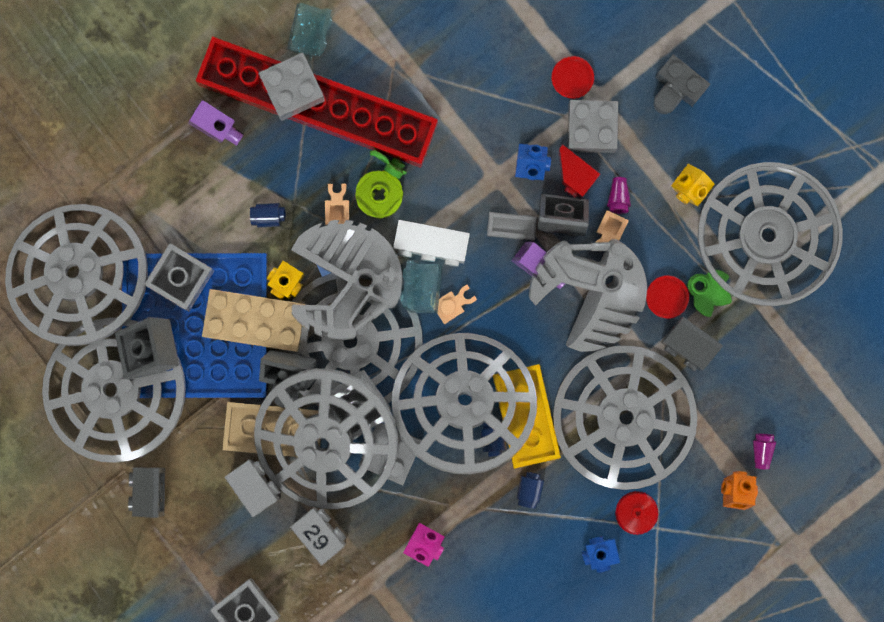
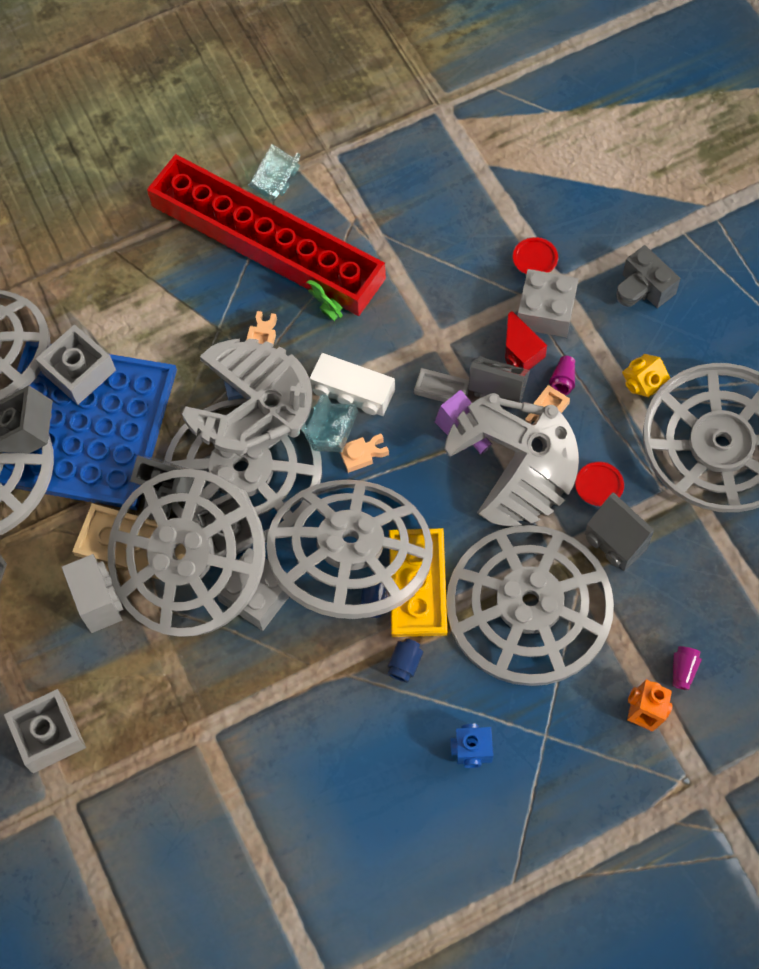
camera: 20 degrees right, 20 degrees down
(204, 120) = (154, 234): medium lavender torso -> none
(251, 320) = (140, 425): tan plate -> none
(267, 215) = (187, 331): dark blue brick -> none
(288, 272) = (188, 392): yellow brick -> none
(292, 86) = (241, 203): light grey brick -> none
(319, 535) = (152, 658): light grey brick -> none
(365, 195) = (308, 345): lime plate -> none
(424, 545) = (269, 695): dark pink brick -> none
(532, 162) = (476, 325): blue brick -> none
(636, 513) = (524, 713): red piece -> none
(710, 295) = (649, 492): bright green plate -> none

